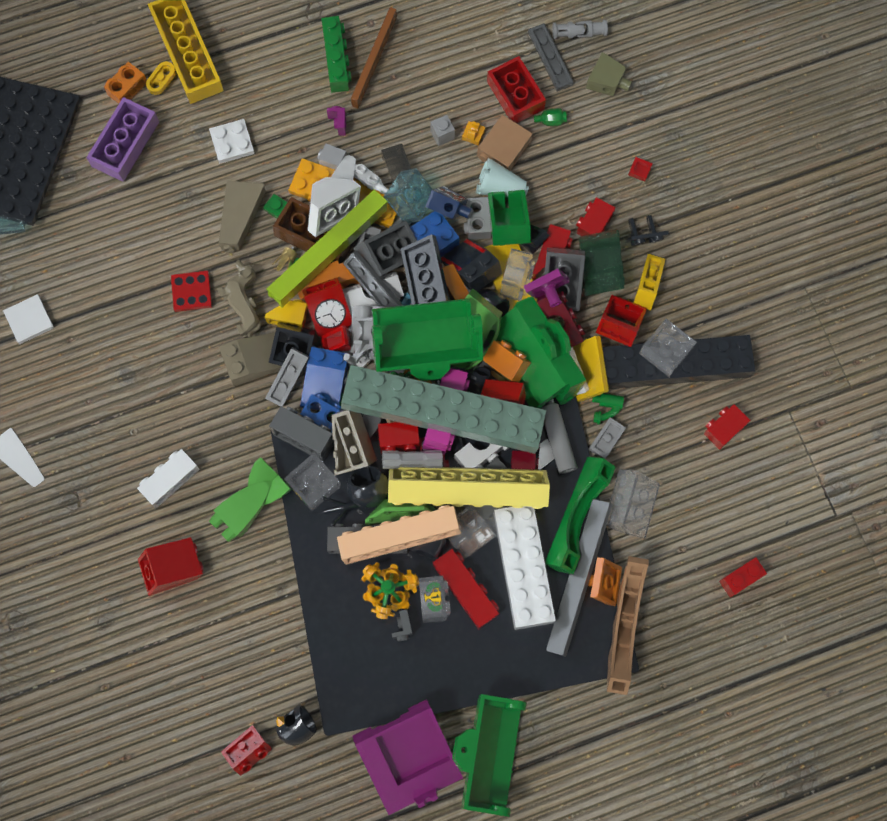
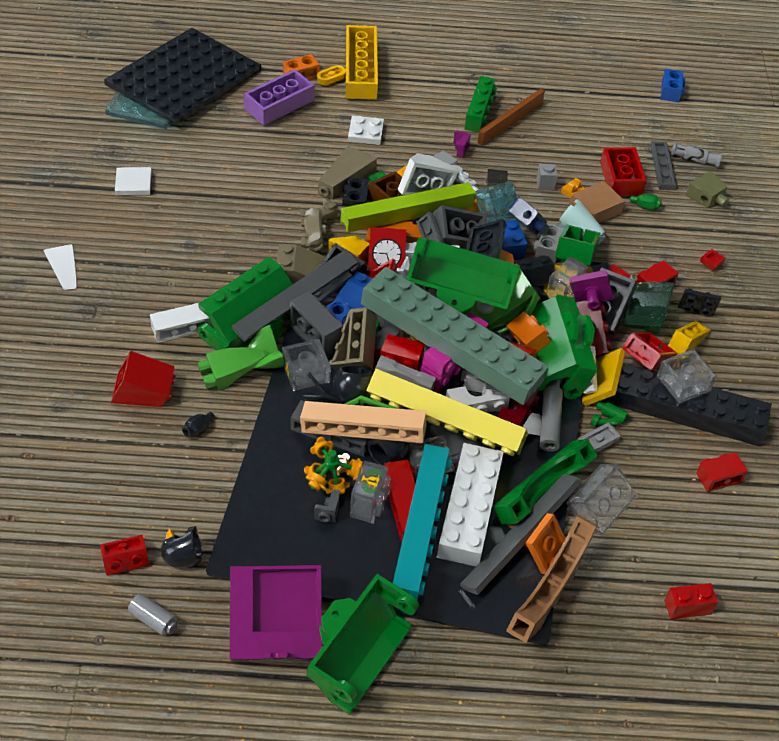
camera: 20 degrees right, 25 degrees down
(191, 291) = (277, 209): red tile -> none
(229, 439) = (239, 300): none -> green piece
(242, 586) = (197, 424): none -> black plant
(267, 239) = (355, 191): none -> black brick
(267, 409) = (280, 304): none -> dark grey tile
(302, 798) = (152, 615): none -> light grey brick
(492, 614) = (421, 519): none -> teal brick

